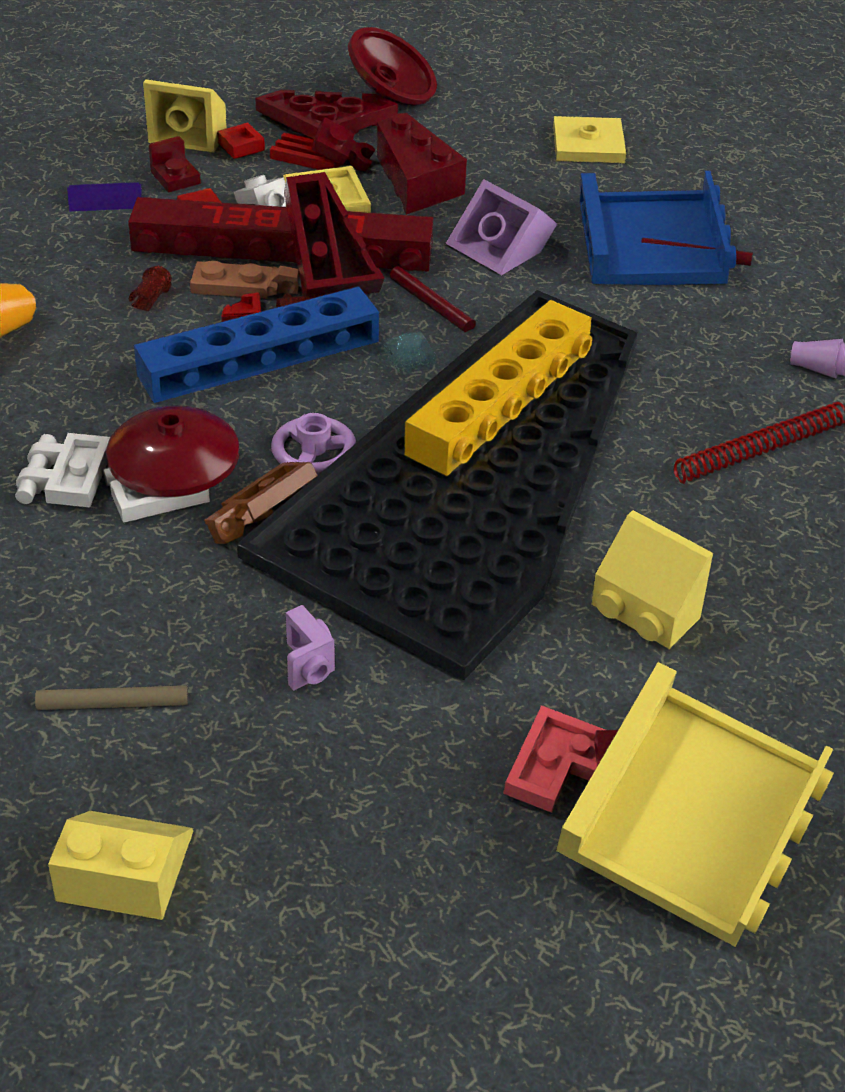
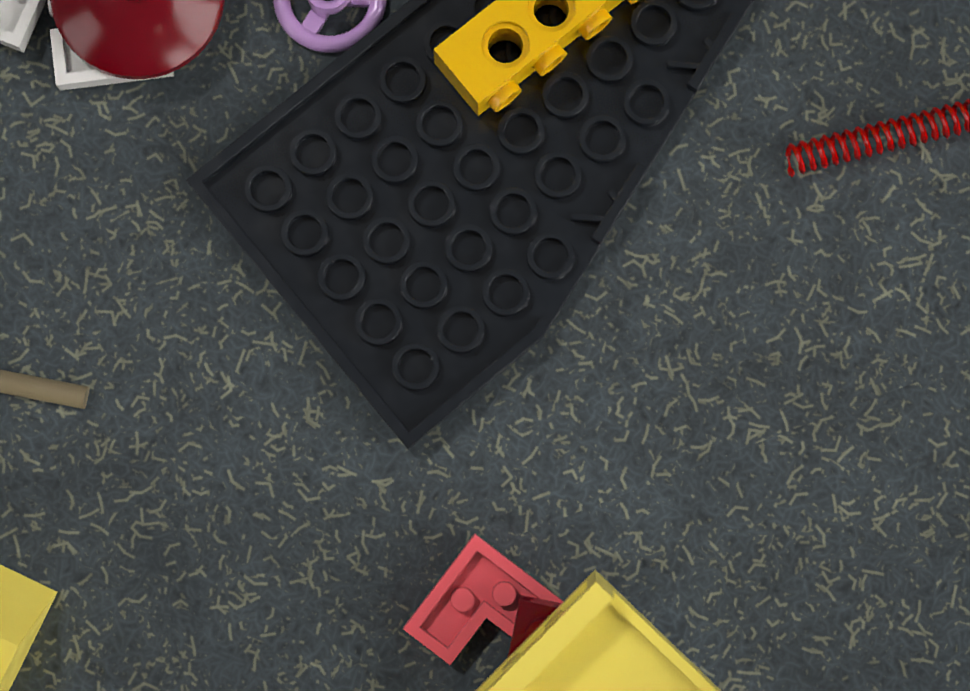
camera: 15 degrees right, 40 degrees up
(257, 500) = (234, 96): dark orange hinge -> none
(312, 648) = (241, 359): lavender bracket -> none
(652, 580) = (664, 380): light yellow slope -> none

